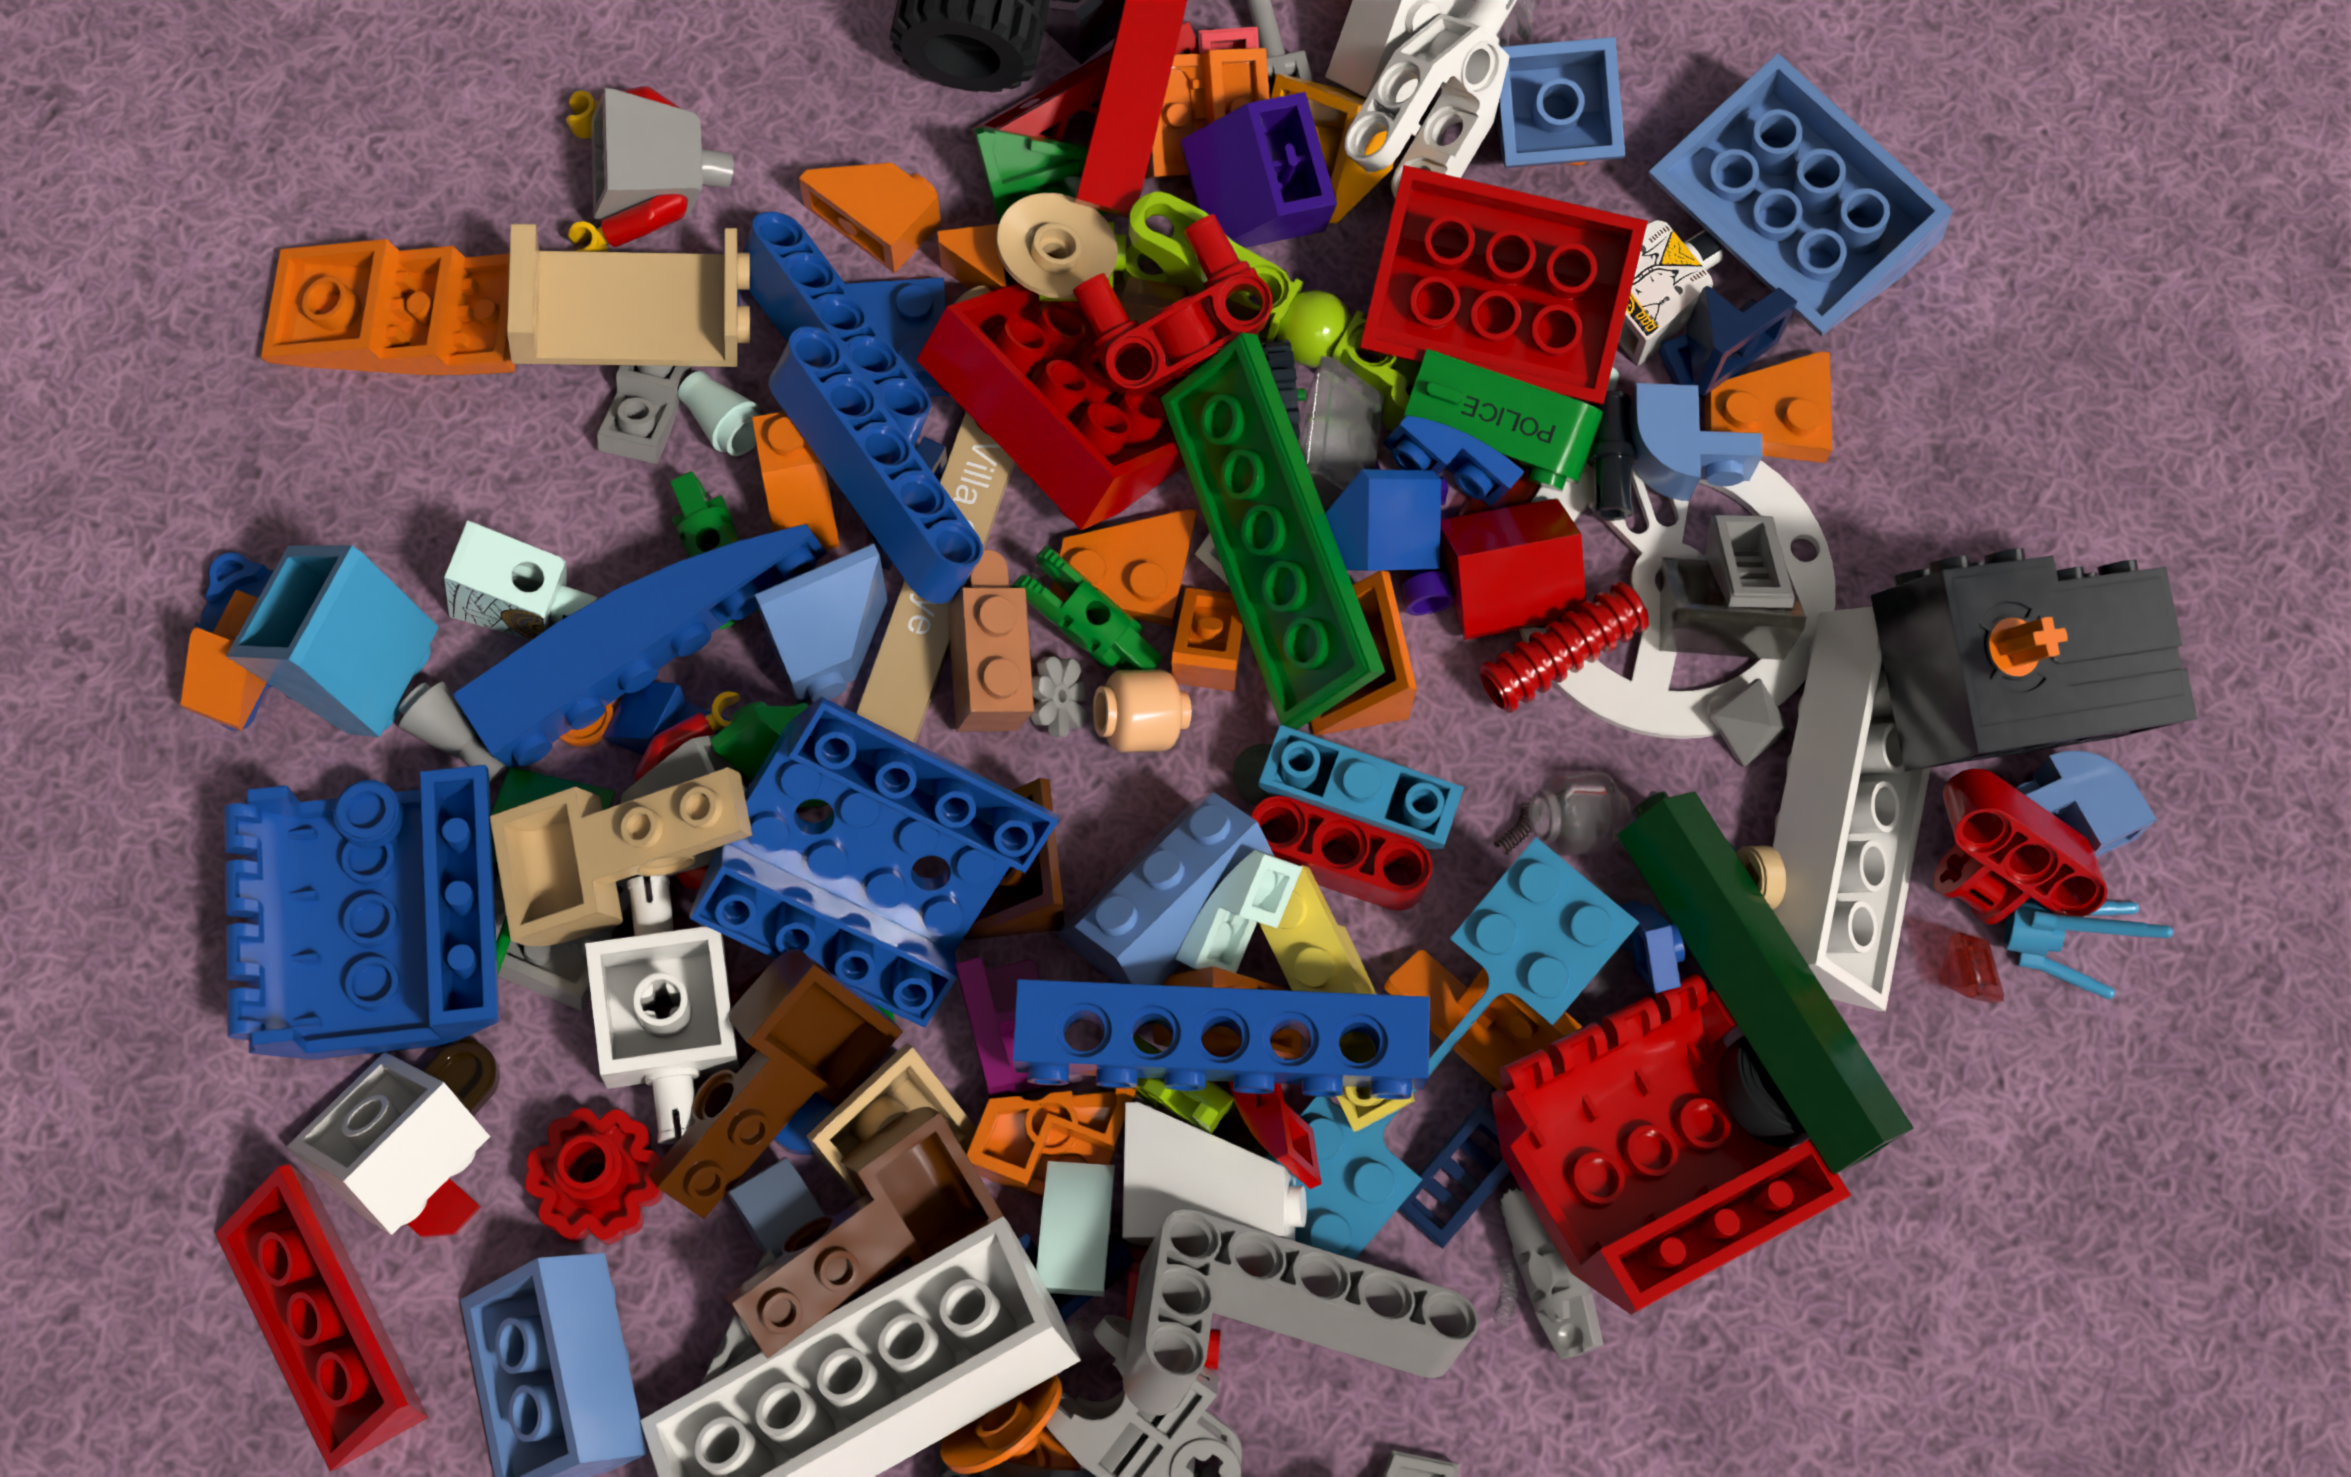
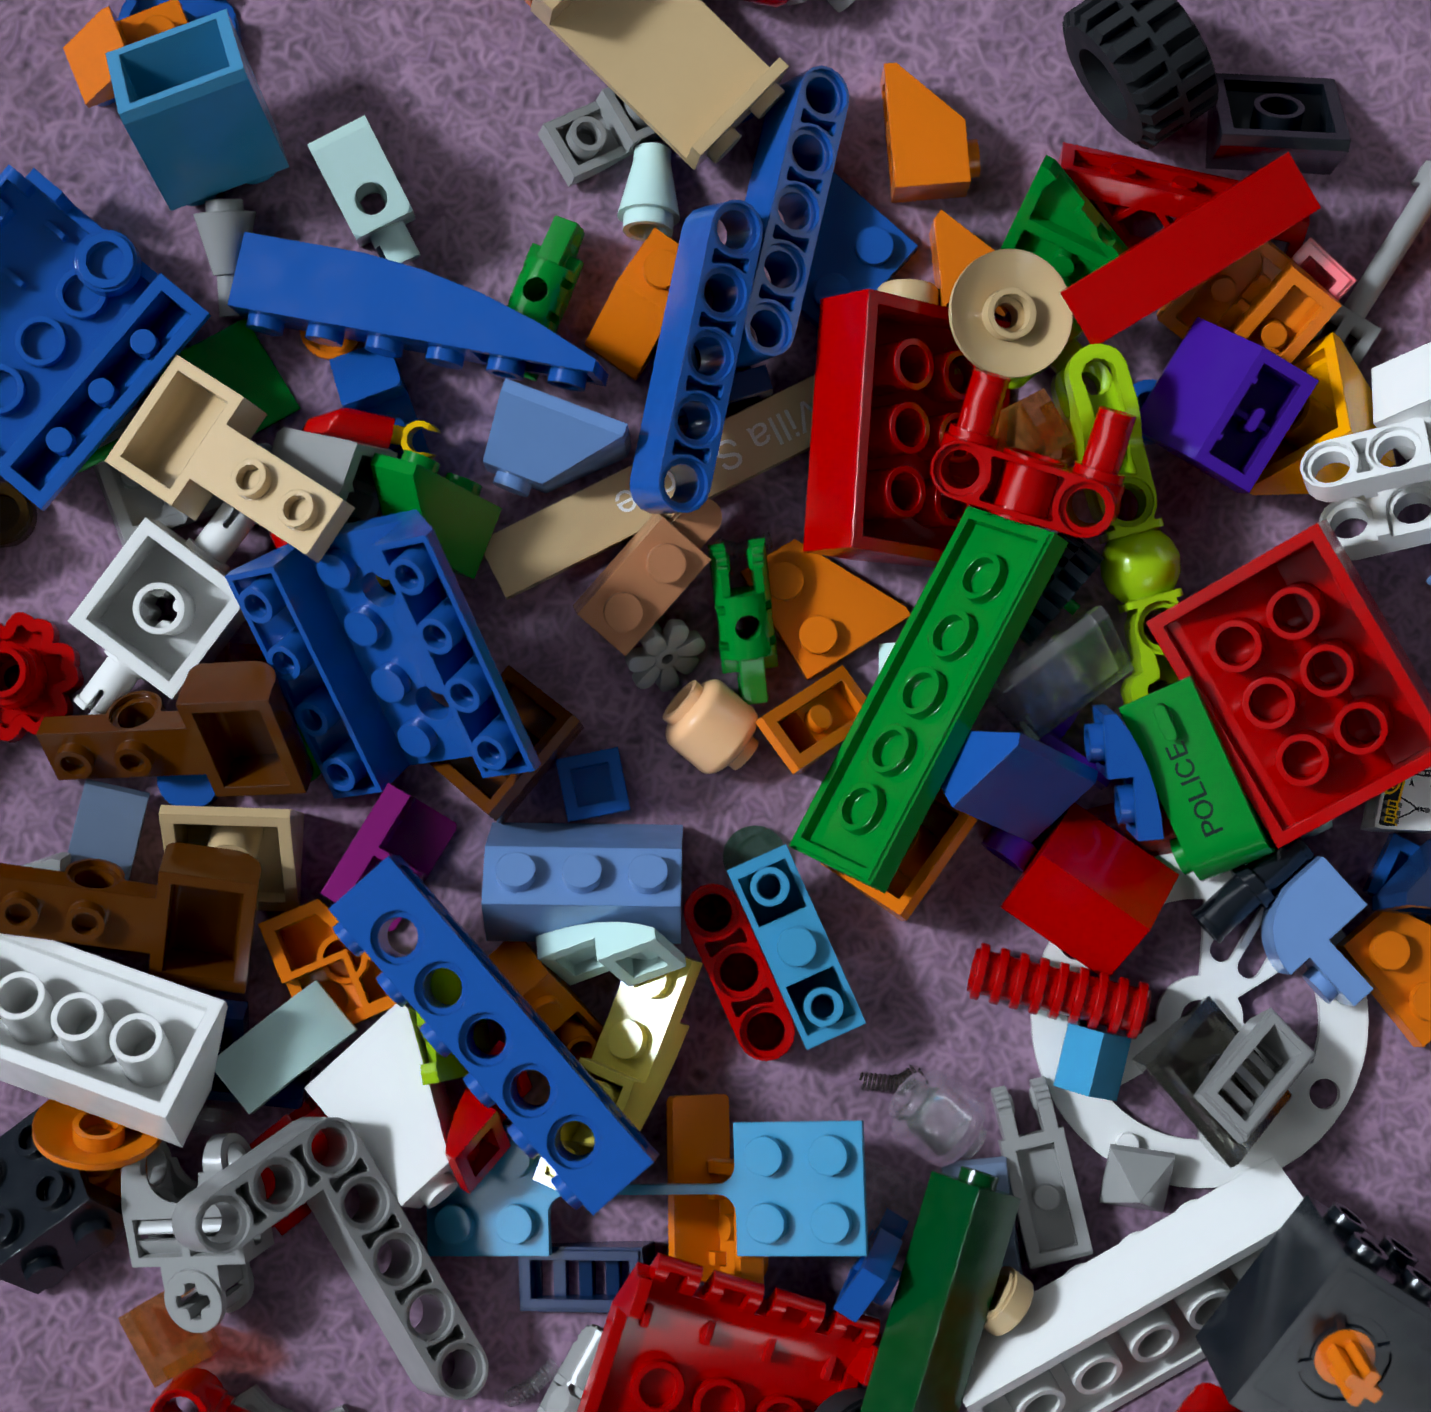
camera: 50 degrees right, 15 degrees up
(1100, 836) = (593, 784): none -> blue tile
(1635, 674) = (1092, 1062): none -> dark azure slope
(1731, 798) = (1044, 1179): none -> light grey hinge

